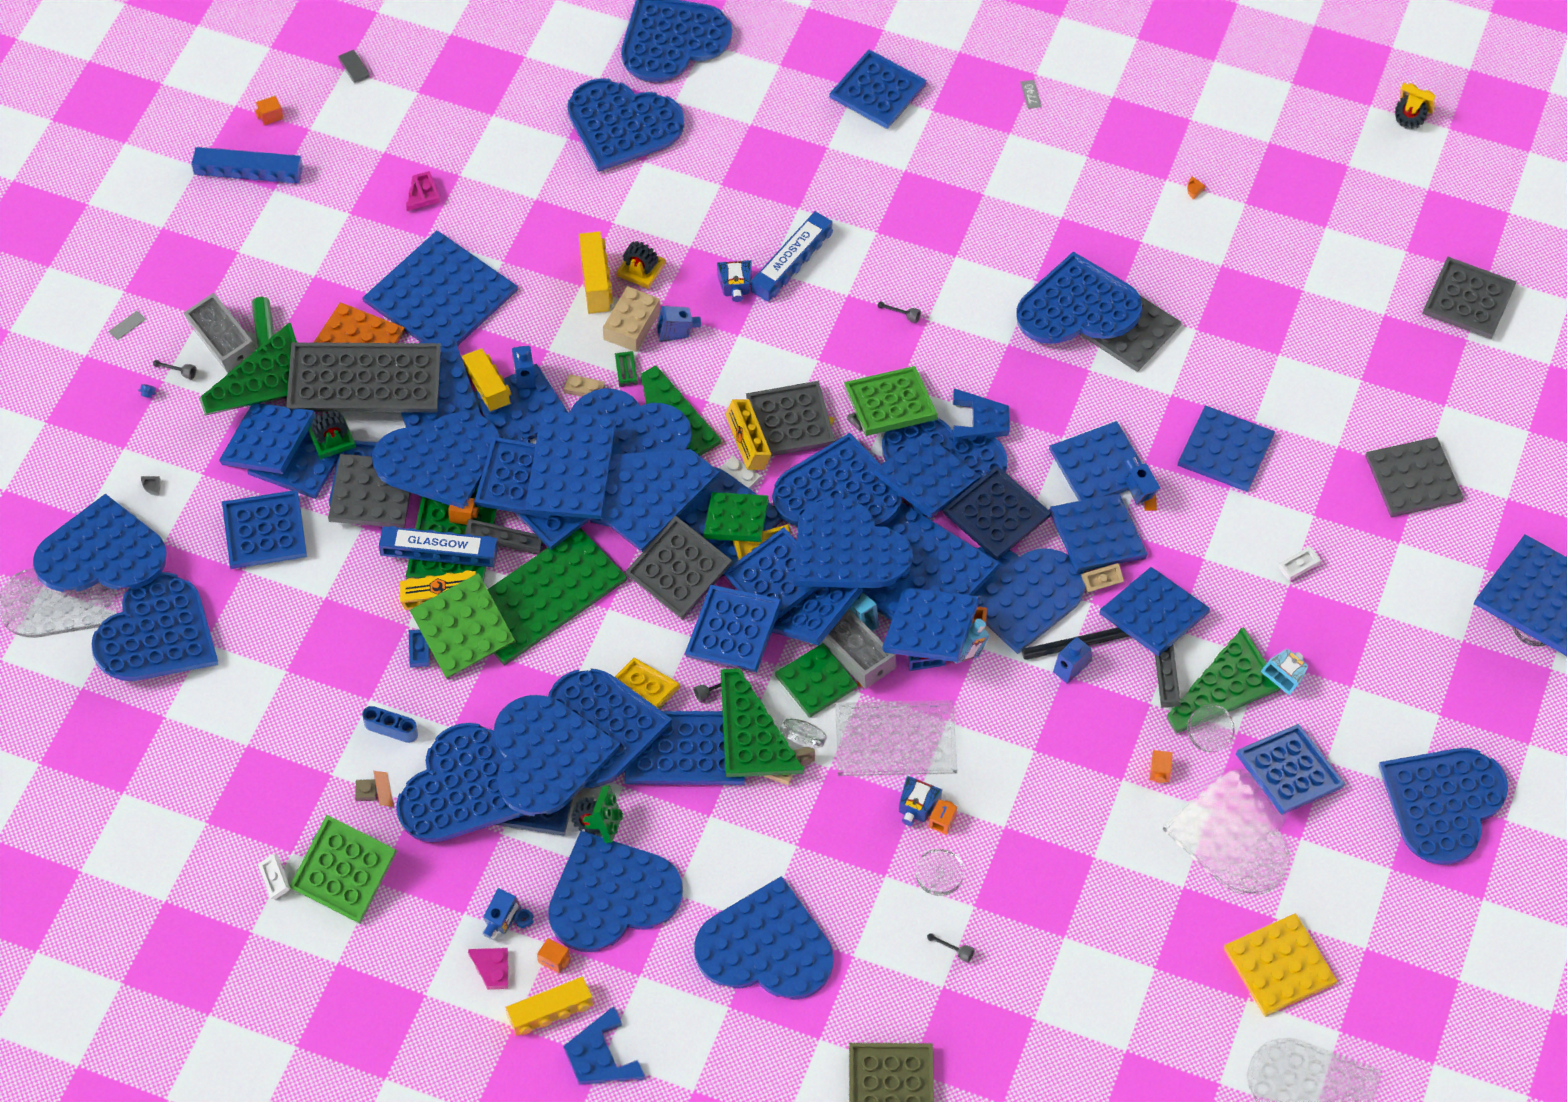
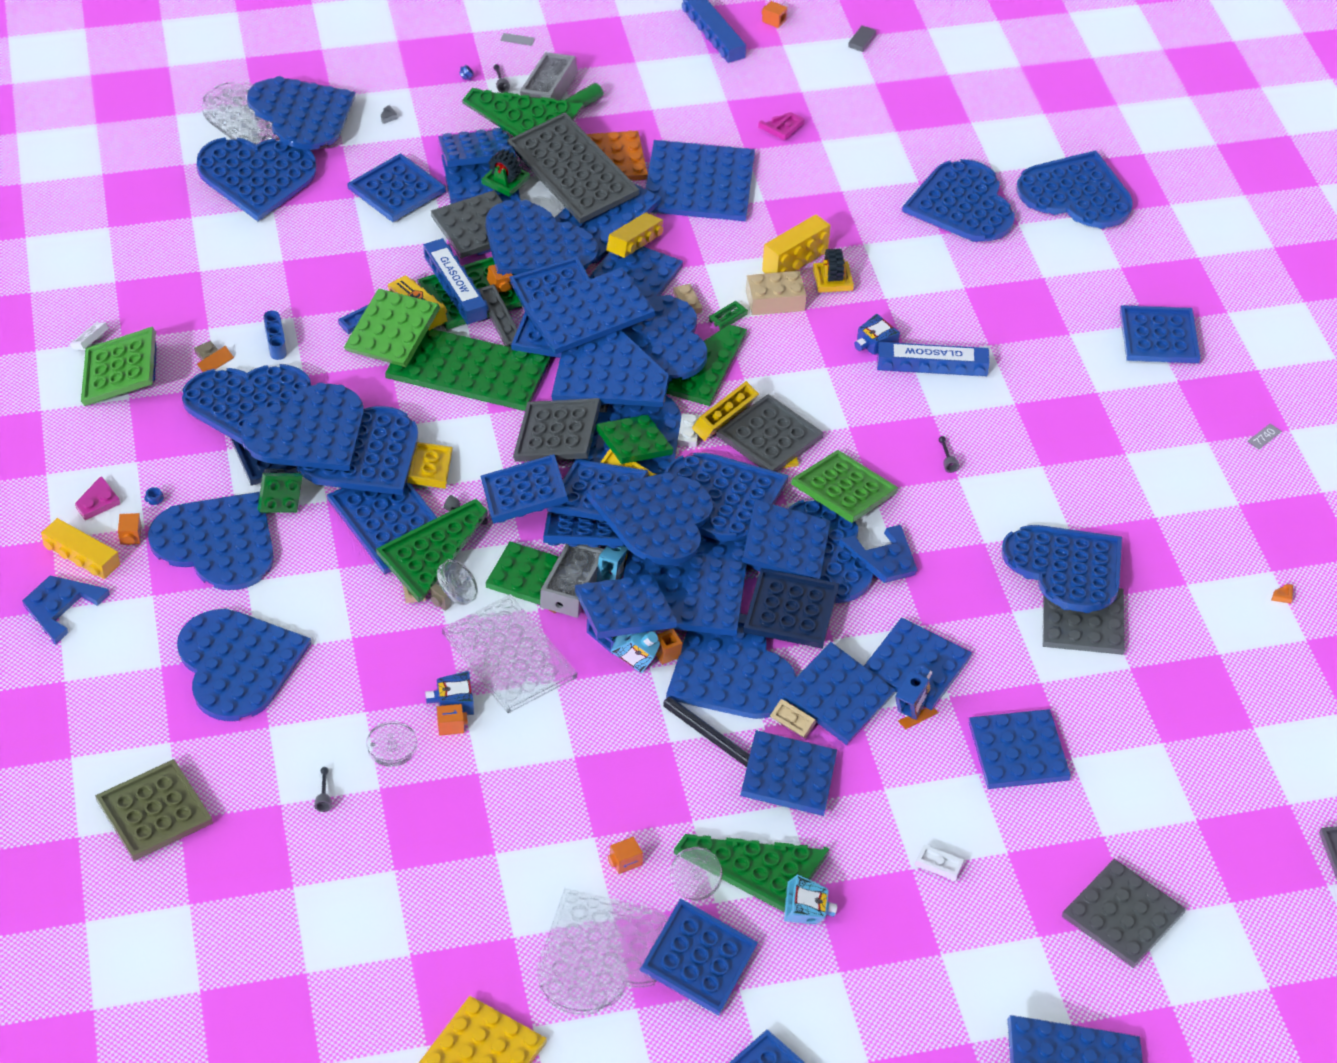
camera: 55 degrees right, 10 degrees down
(500, 913) = (144, 475): blue torso -> none
(523, 361) = (664, 247): blue torso -> none
(676, 323) = (794, 318): blue torso -> none
(1076, 657) = (686, 735): blue torso -> none
(1167, 679) = (726, 816): dark grey tile -> none

